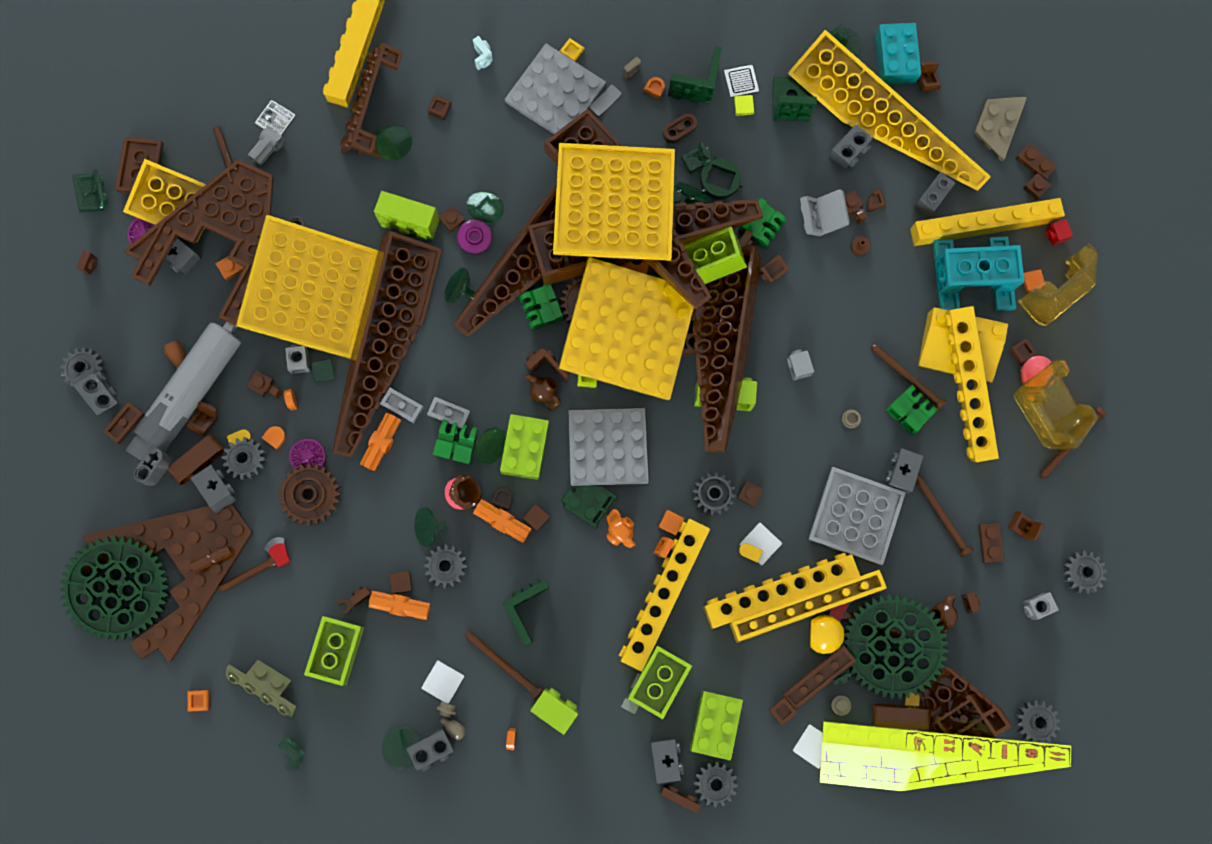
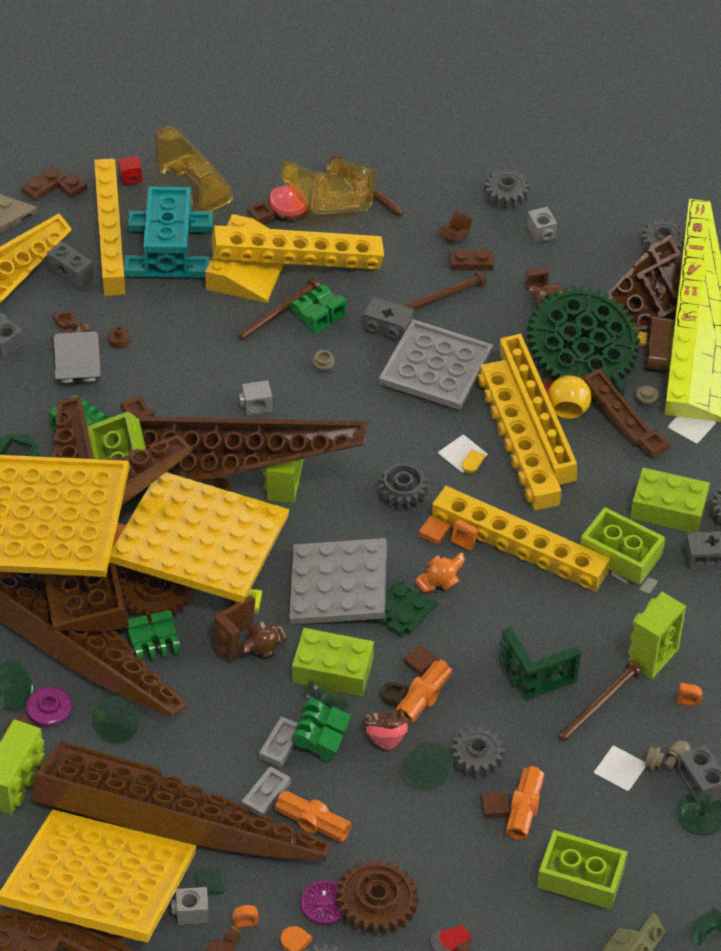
camera: 80 degrees left, 30 degrees down
(358, 597) = (515, 847): reddish brown plate -> none
(750, 494) = (404, 454): reddish brown plate -> none

